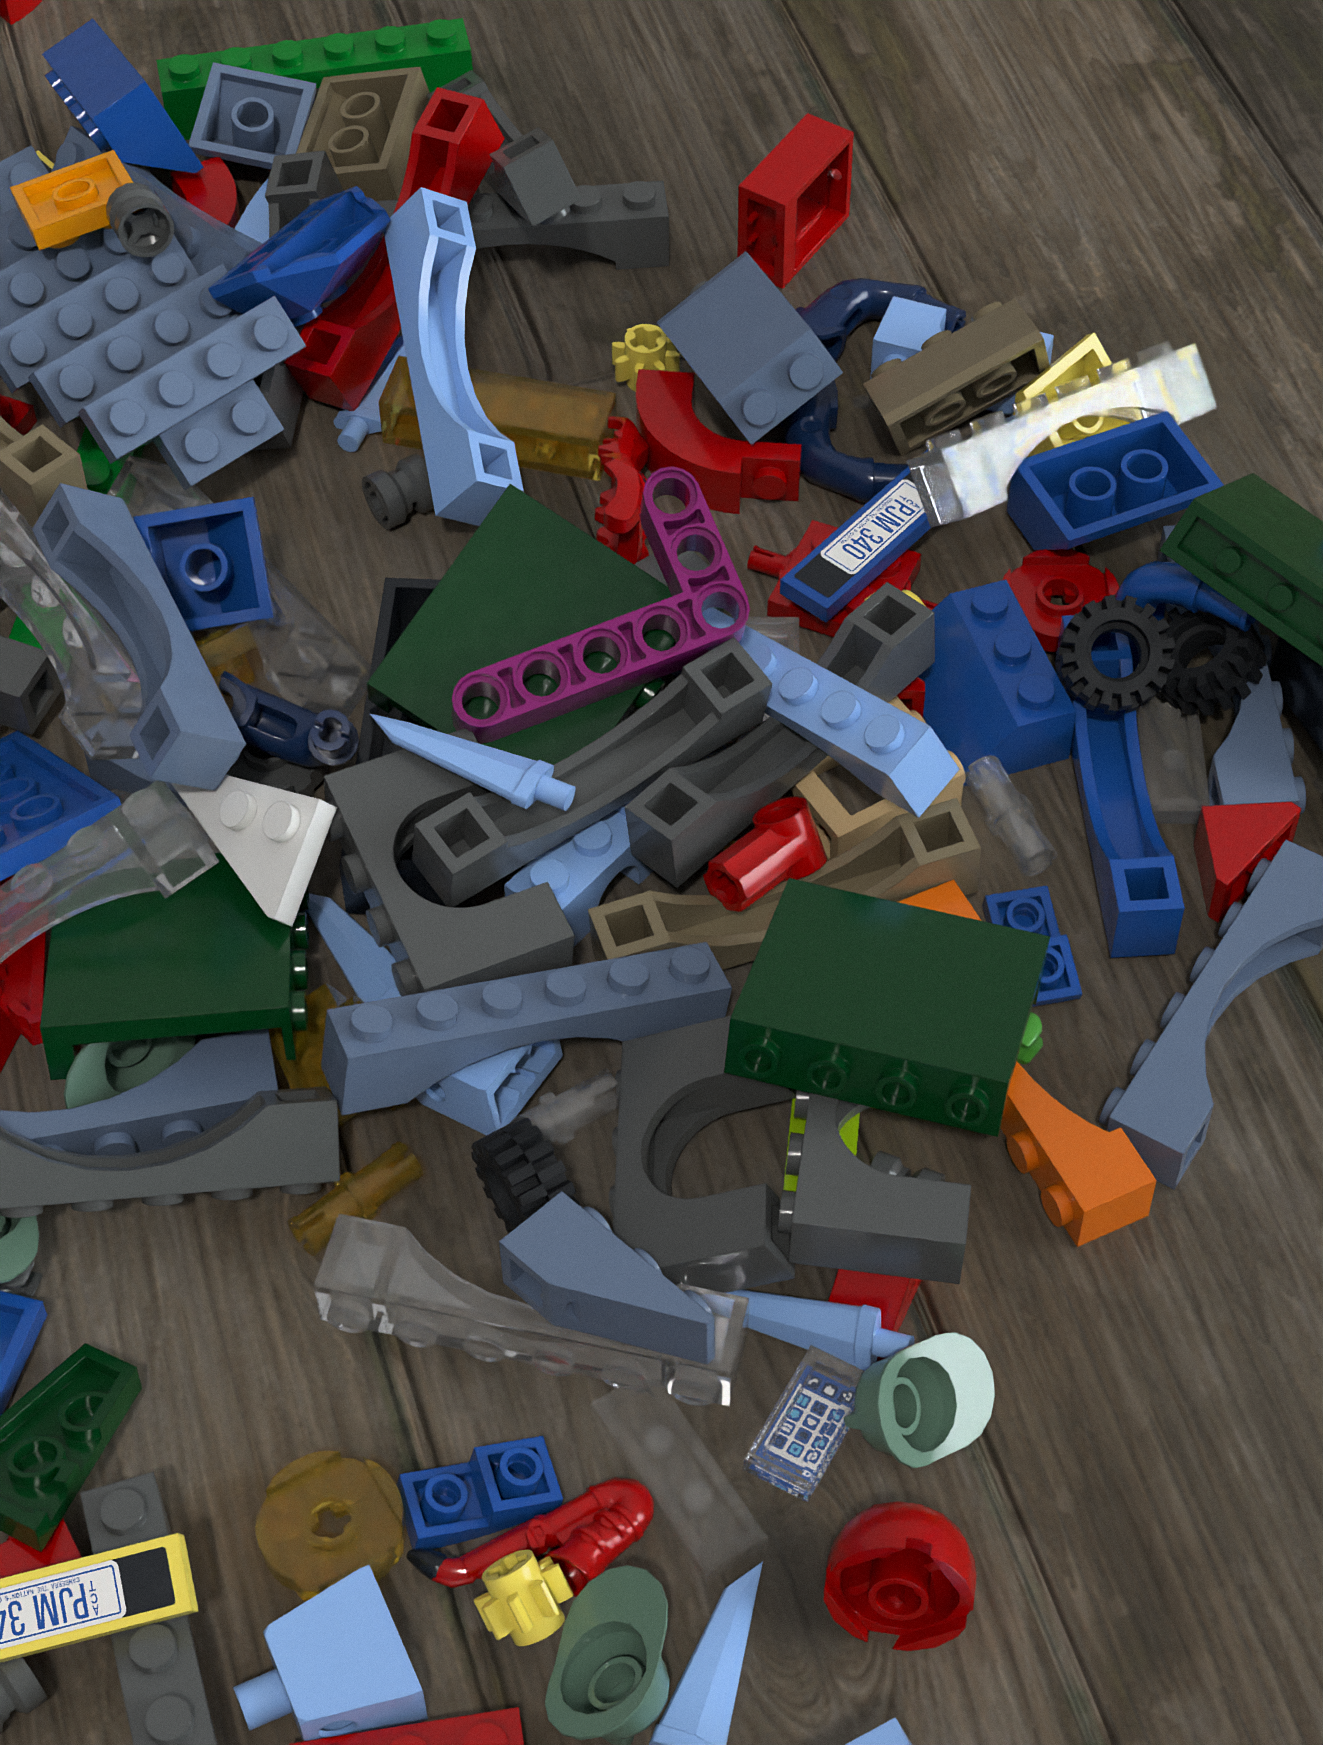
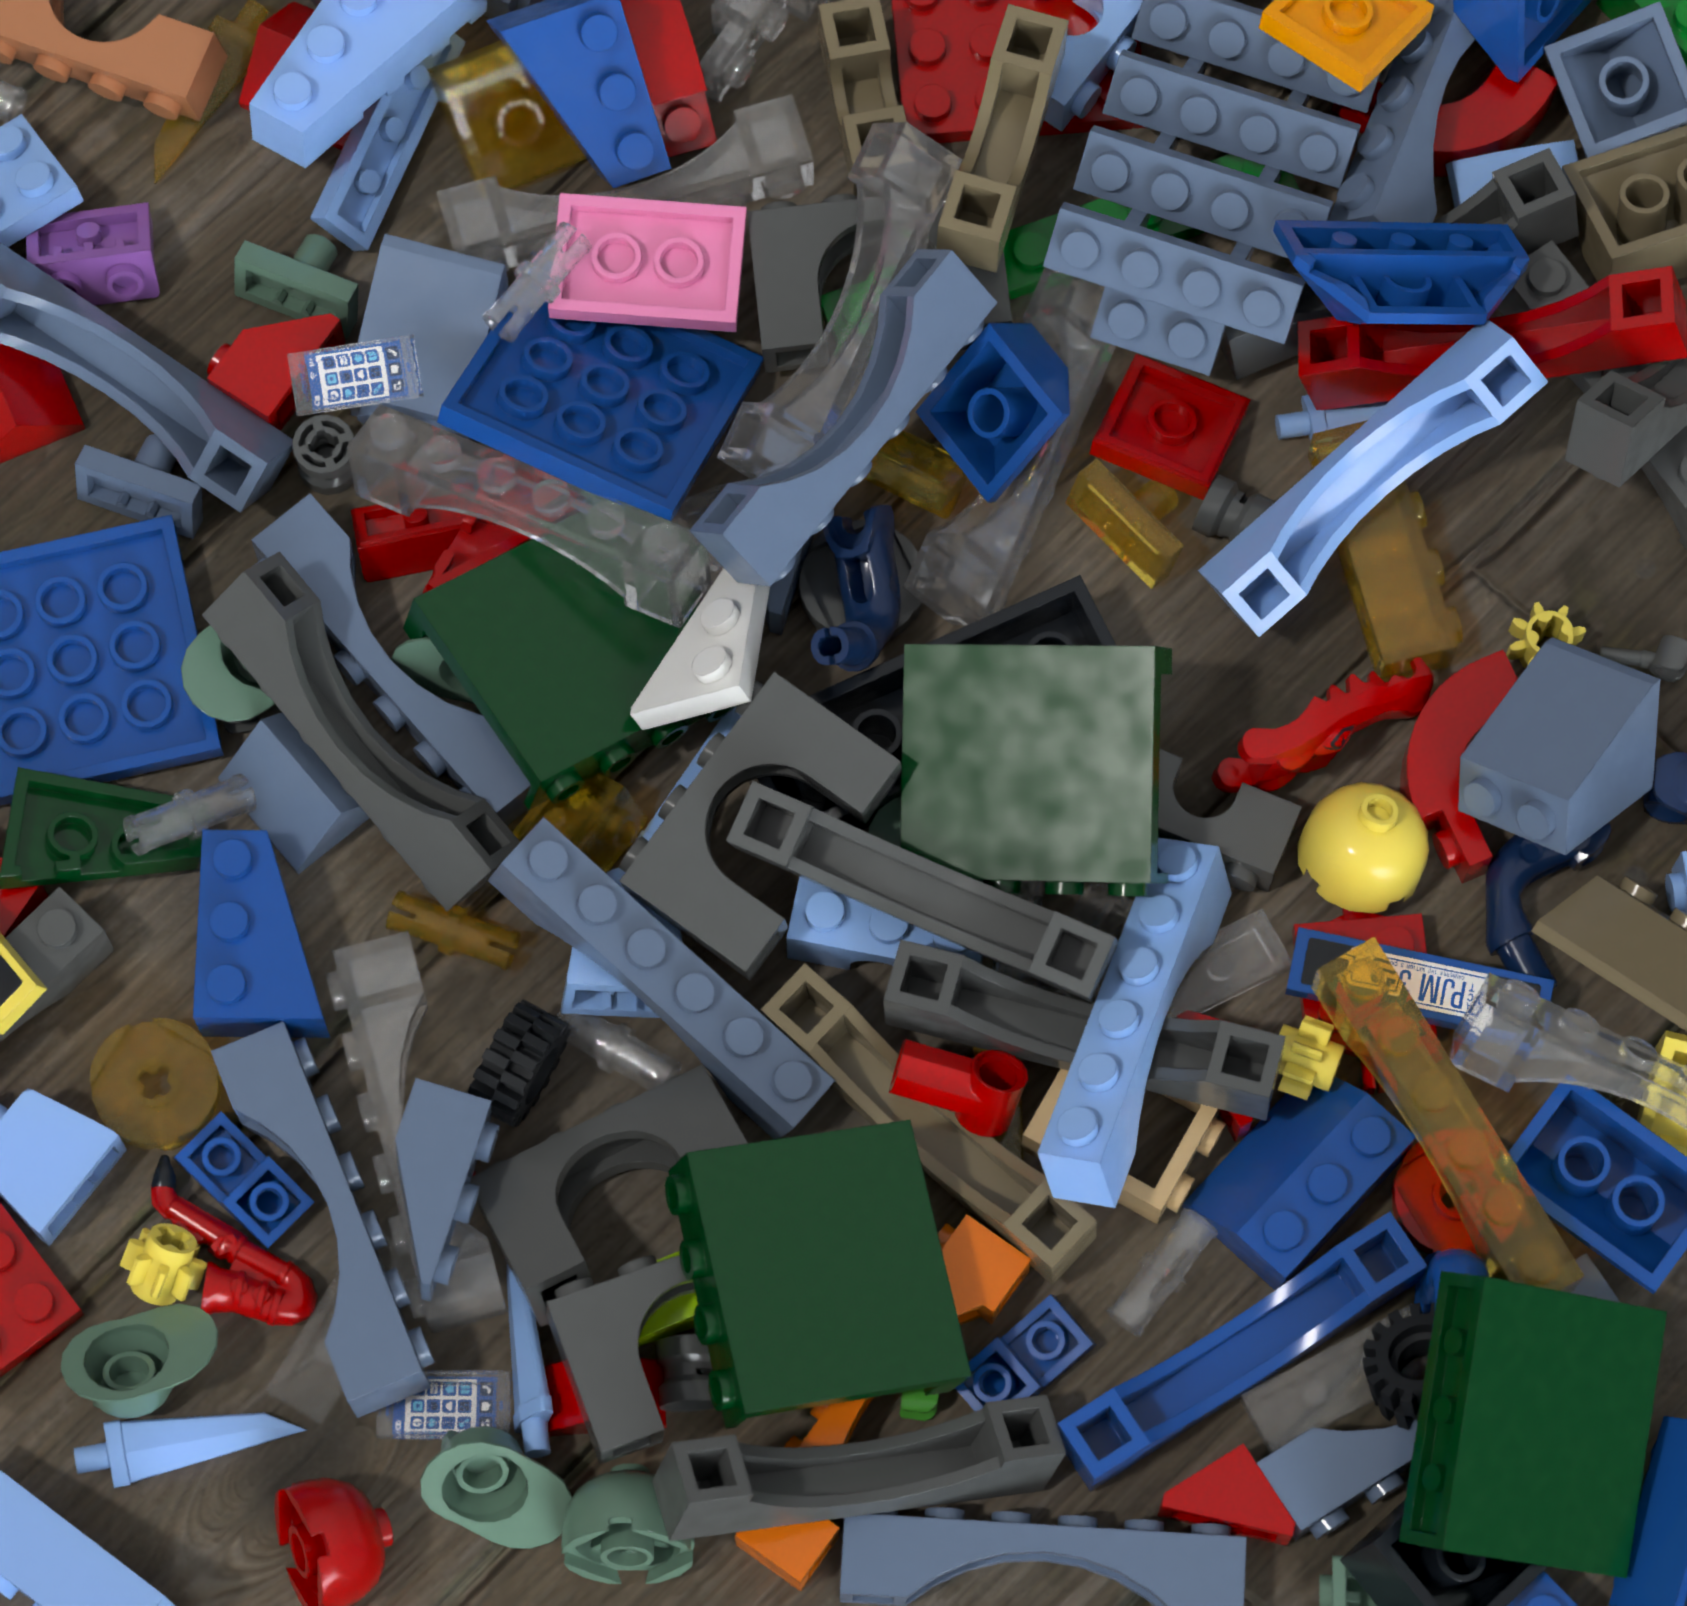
camera: 60 degrees right, 20 degrees up
(90, 1350) = (189, 814): none -> clear pin
(126, 1265) = (294, 793): none -> sand blue slope
(145, 231) = (1331, 101): dark grey wheel -> none
(254, 1362) = (249, 944): none -> blue wedge
(302, 496) = (1169, 426): none -> red plate
(353, 556) = (1128, 520): none -> clear yellow tile
(423, 1413) = (367, 1336): none -> sand blue arch
(496, 770) = (860, 811): light blue bar -> none
(622, 636) = (1063, 841): magenta beam -> none
(749, 514) = (1364, 847): none -> light yellow cylinder
(924, 537) = (1418, 1076): none -> clear yellow arch
(1024, 1300) = (619, 1526): none -> sand green cylinder
(1062, 1145) = (739, 1487): none -> dark grey arch
(1135, 623) = (1311, 1284): black tyre -> none

